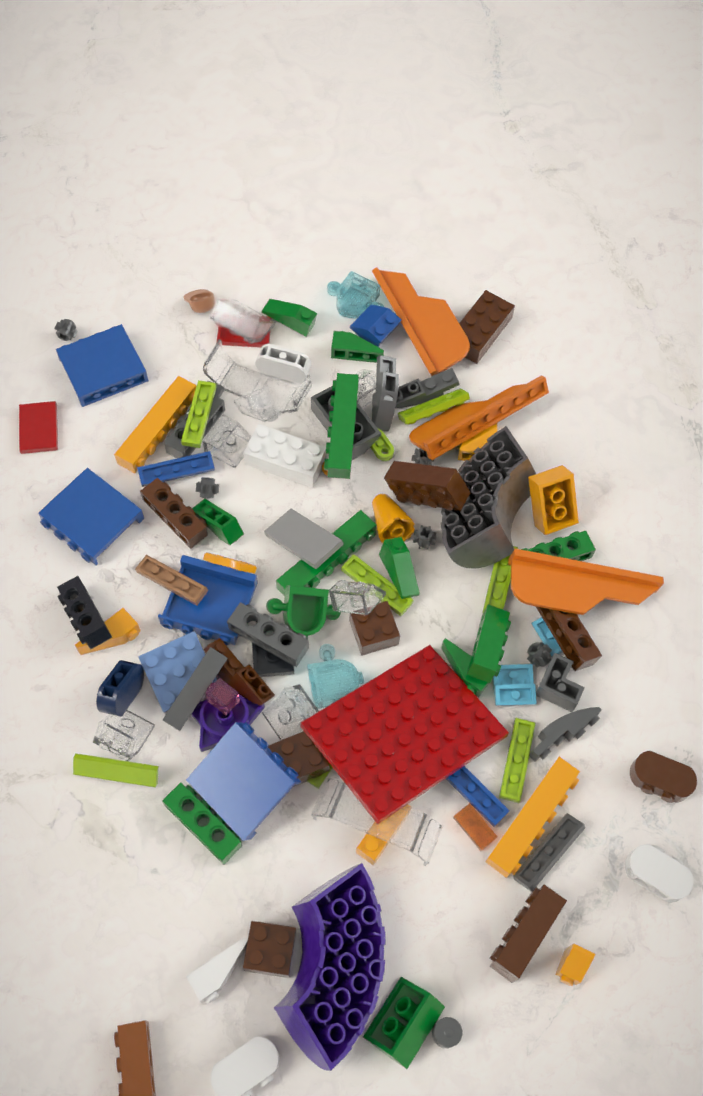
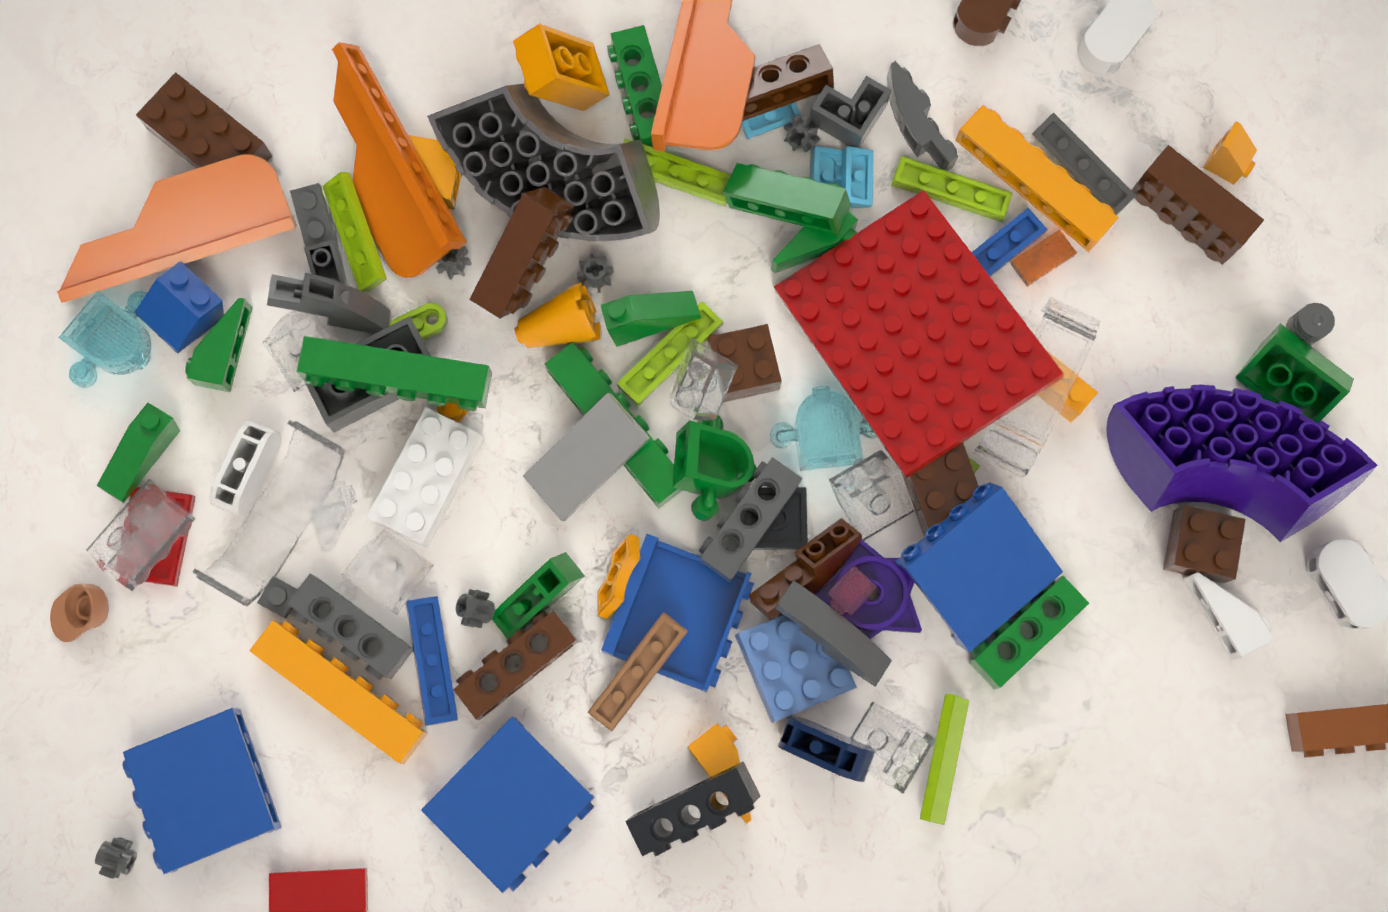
camera: 85 degrees left, 15 degrees up
(198, 414) = (338, 614): lime plate -> none

